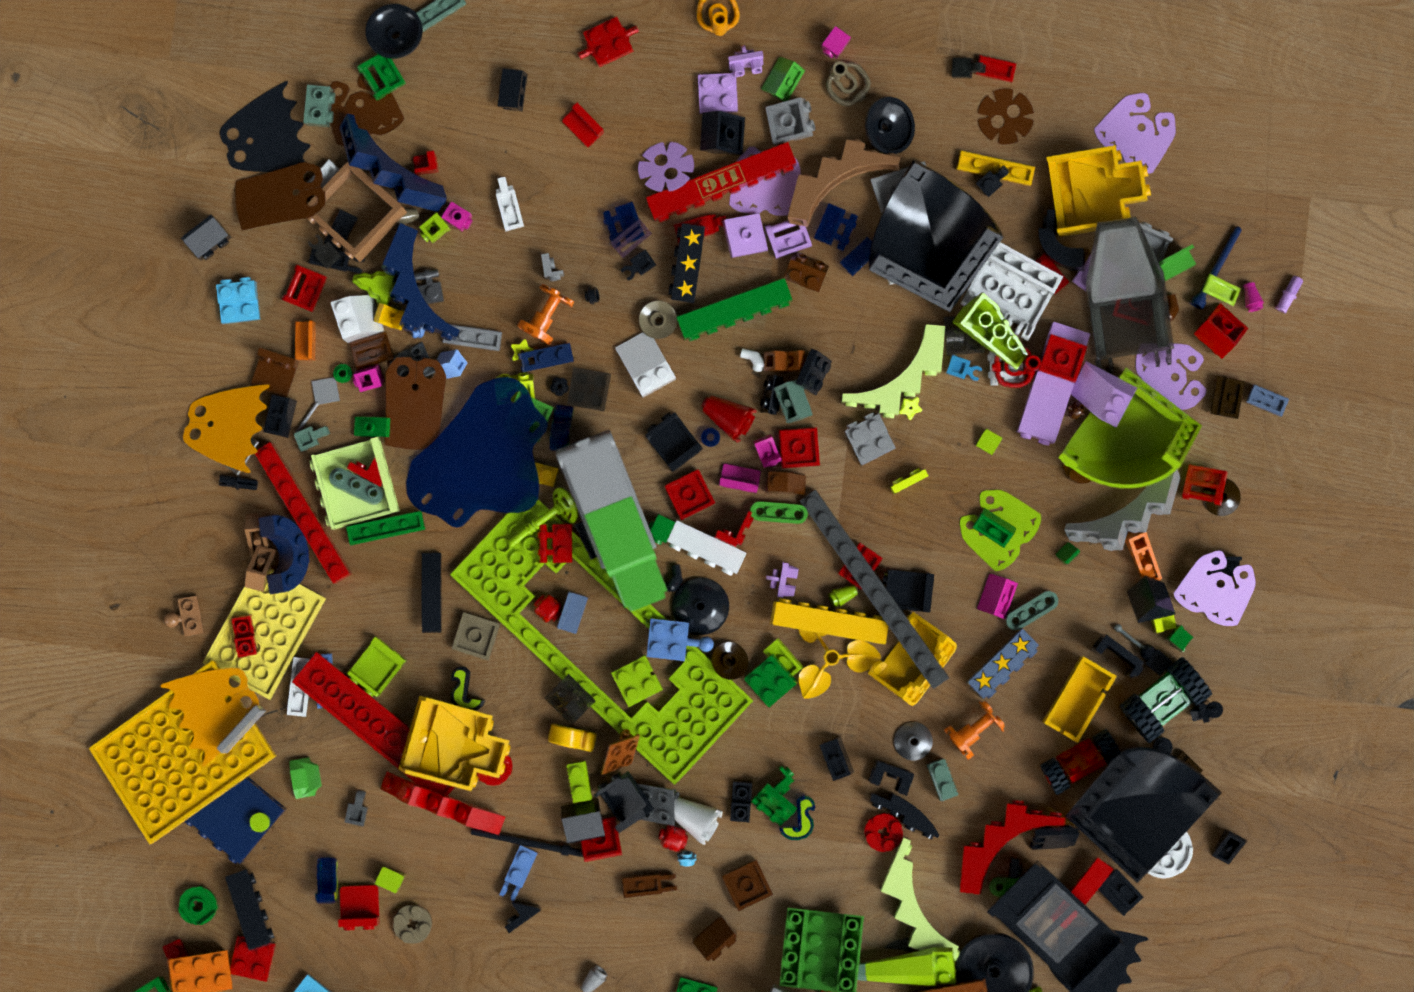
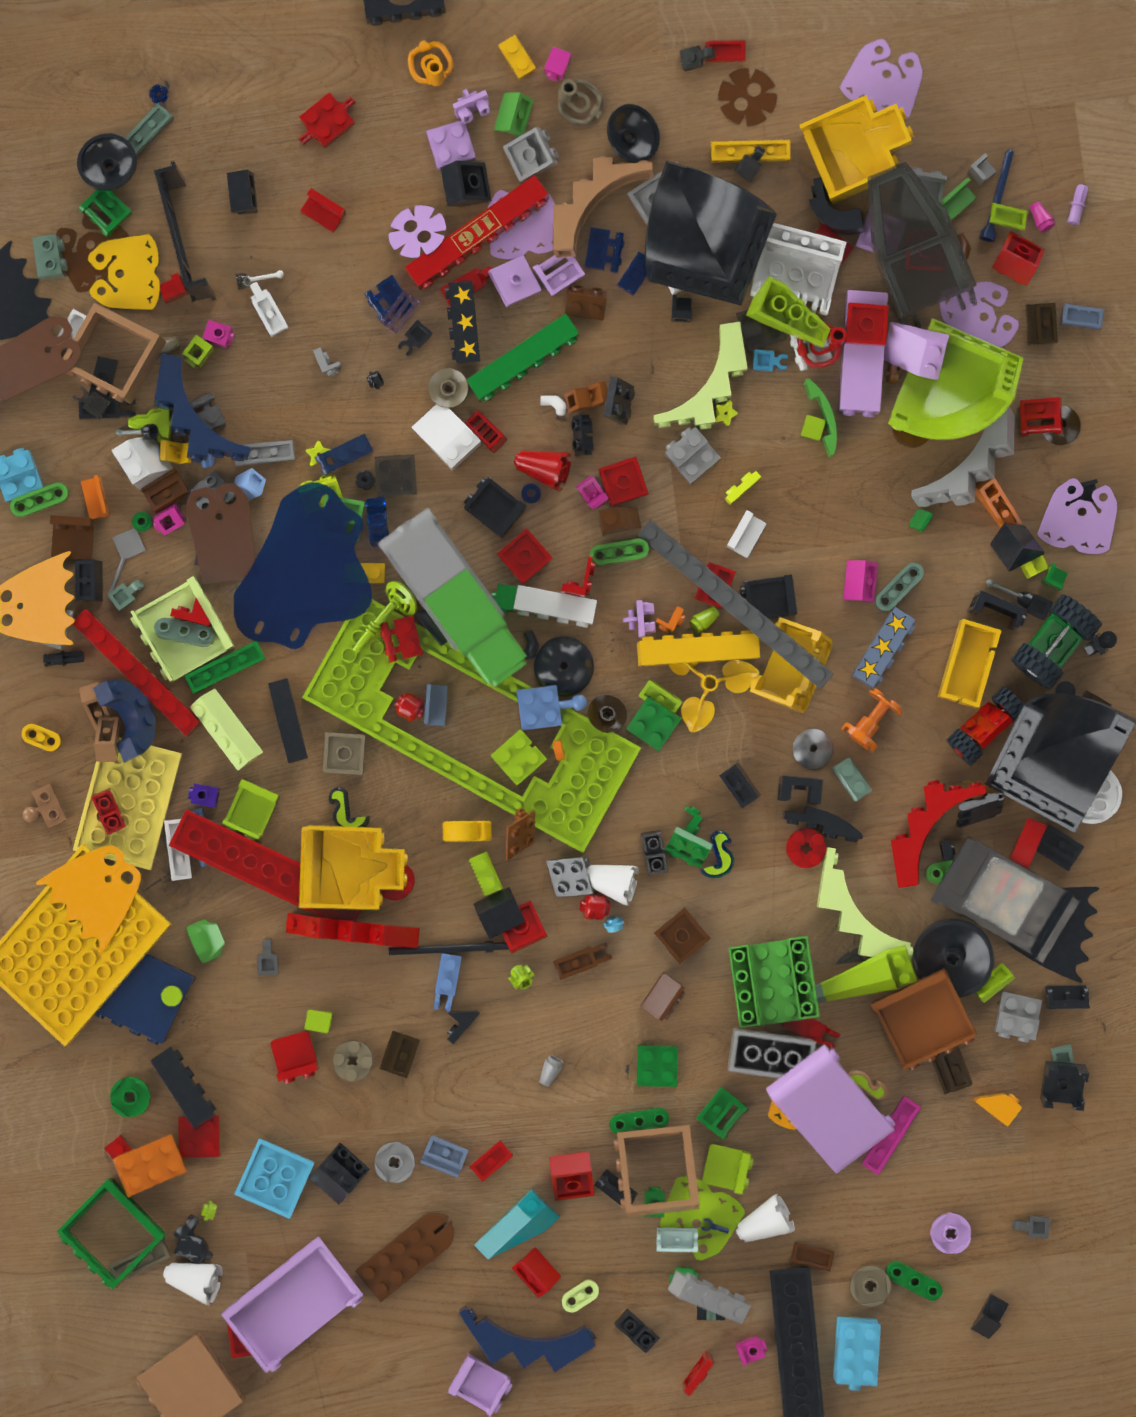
camera: 25 degrees left, 0 degrees up
(199, 551) = (41, 738): none -> yellow plate
(241, 729) = (129, 905): light grey tile -> none
(244, 329) = (30, 499): none -> bright green plate
(310, 289) = (87, 447): red plate -> none
(327, 880) = (255, 1038): clear blue animal -> none
(336, 643) = (204, 795): none -> dark purple brick
(367, 155) = (162, 316): dark blue arch -> none
(370, 291) = (148, 431): none -> black hinge
(372, 427) = (185, 568): green plate -> none
(372, 586) = (226, 729): none -> yellowish green brick
(395, 128) = (138, 273): none -> yellow piece
(443, 63) = (168, 179): none -> black piece
(457, 929) = (399, 1054): none -> dark brown plate
(493, 173) = (244, 280): none -> hinge
(541, 320) = (331, 417): orange piece -> none
(570, 699) = (455, 793): clear smoke plate -> none
(588, 886) = (521, 977): none -> lime gear
(624, 800) = (536, 880): black panel -> none
(676, 684) = (559, 750): none -> orange tile
(690, 382) = (497, 443): none -> red slope
(740, 478) = (571, 527): dark pink panel -> none
(793, 401) = (605, 436): sand green brick -> none
(800, 26) = (517, 57): none -> yellow plate
(817, 588) = (676, 619): none -> orange bracket
(893, 300) = (681, 309): none -> black panel
(901, 525) = (746, 534): none -> white panel
(994, 527) = (840, 513): green slope -> none
(999, 410) = (815, 393): none -> bright green slope
(1016, 514) = (857, 514): lime piece -> none
(1207, 239) = (981, 170): none -> light grey panel

